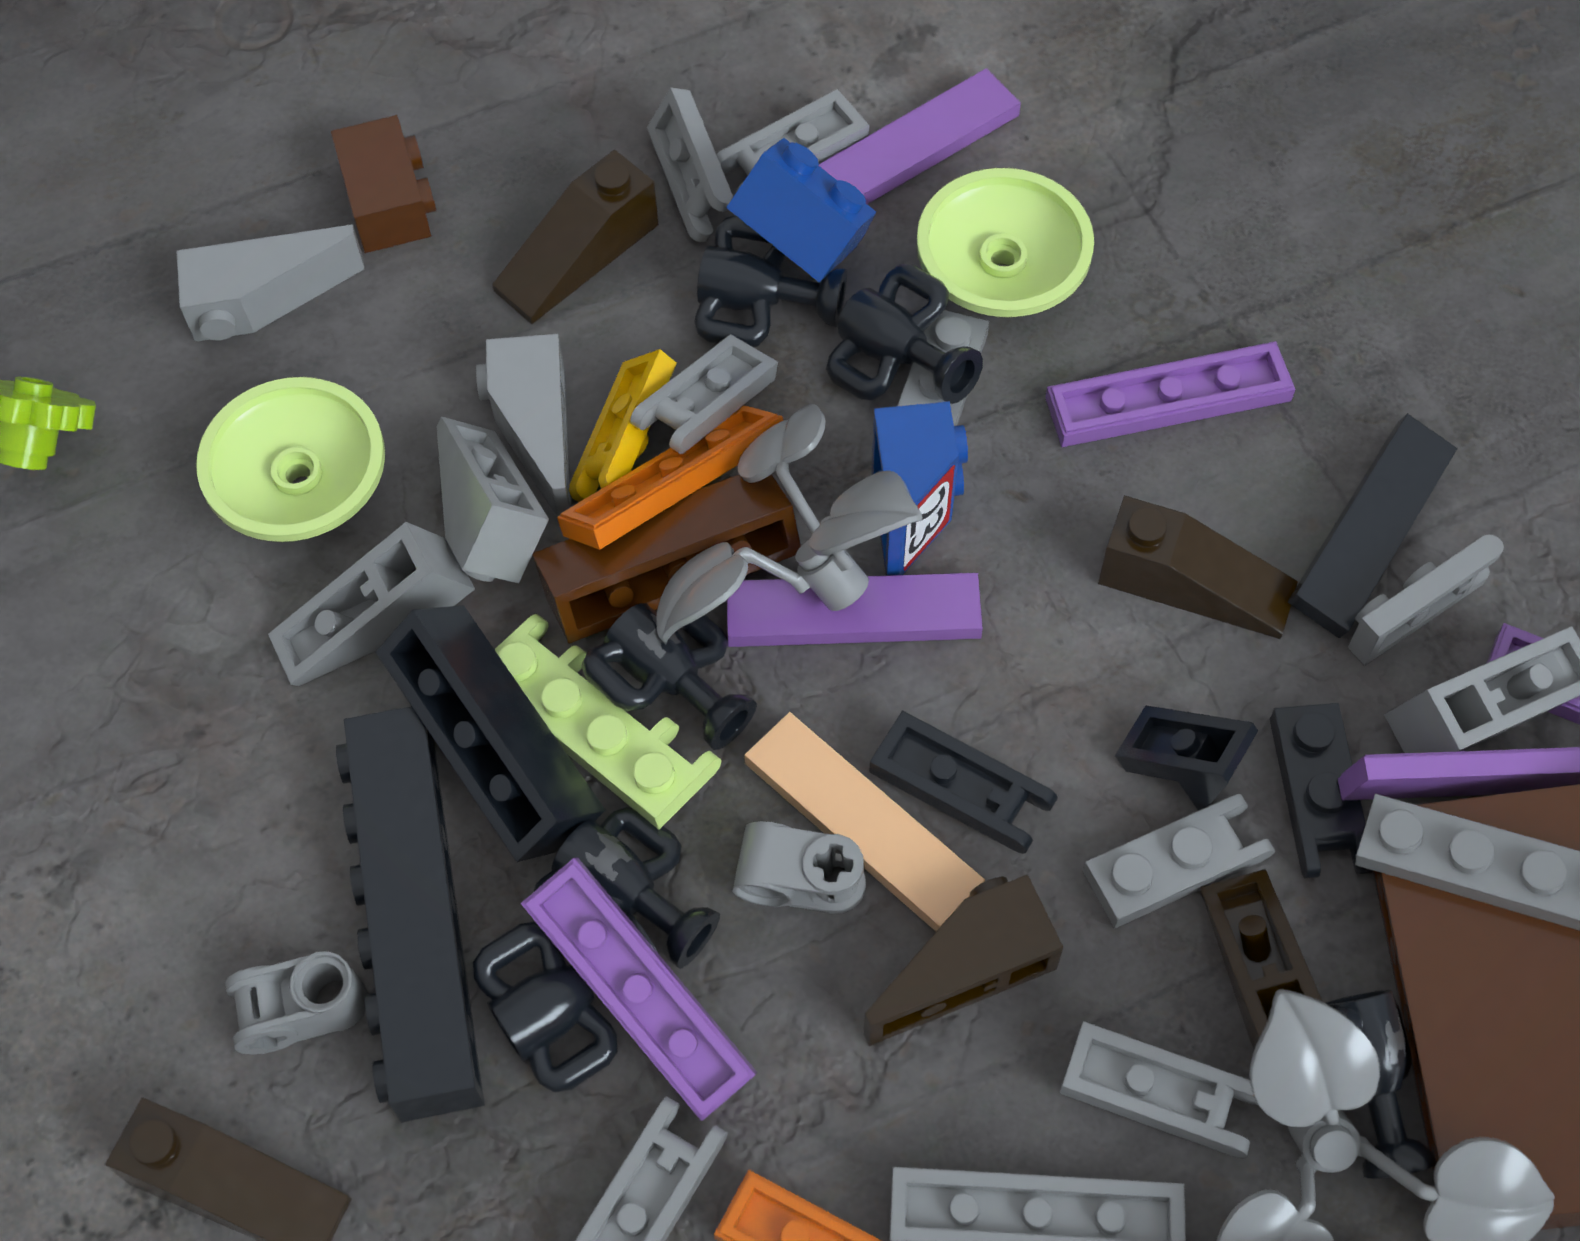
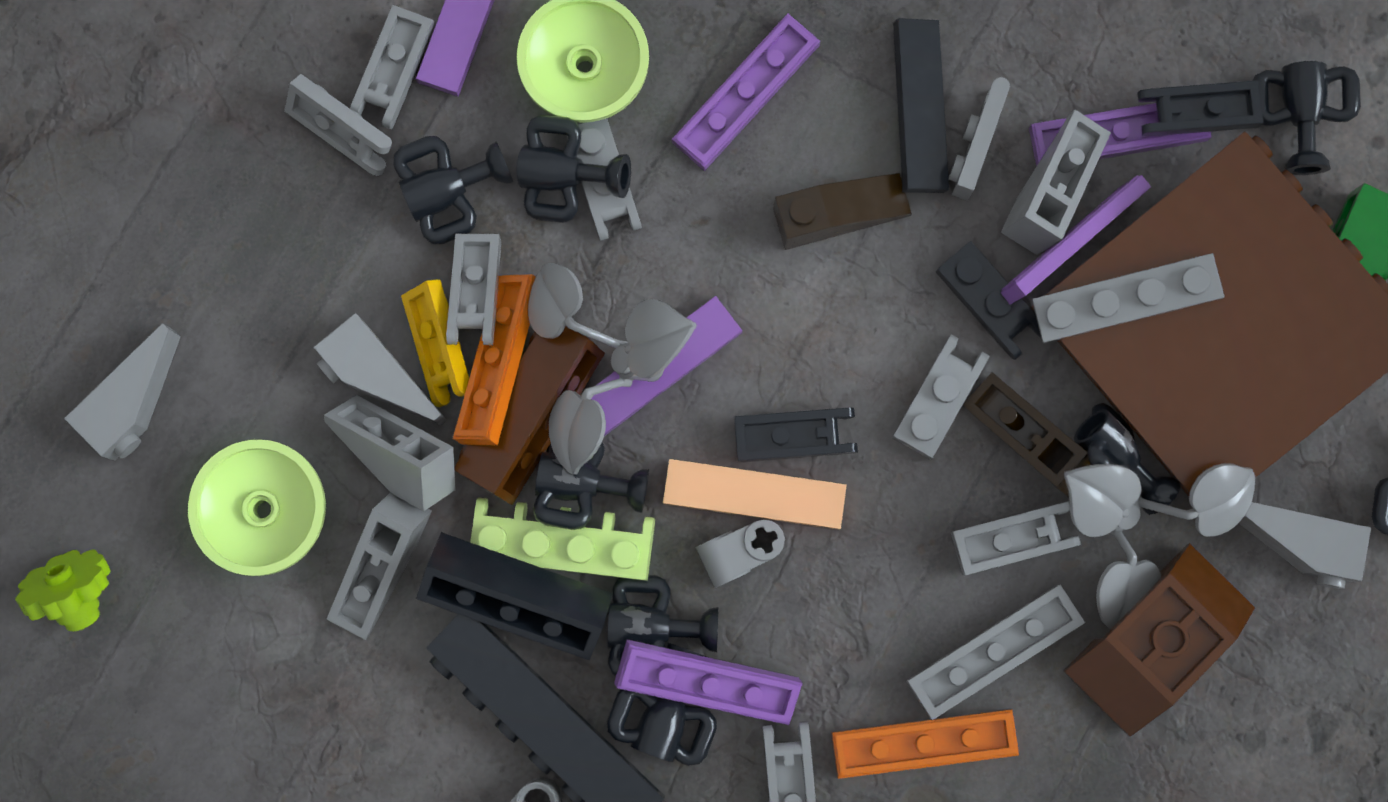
camera: 35 degrees left, 20 degrees up
(382, 183) = (148, 273): reddish brown brick -> none
(579, 236) = (307, 228): dark brown slope -> none
(802, 208) = (448, 128): blue slope -> none
(928, 456) = (641, 260): blue slope -> none
(979, 951) = (871, 529): dark brown slope -> none
(1187, 749) = (908, 332): black slope -> none

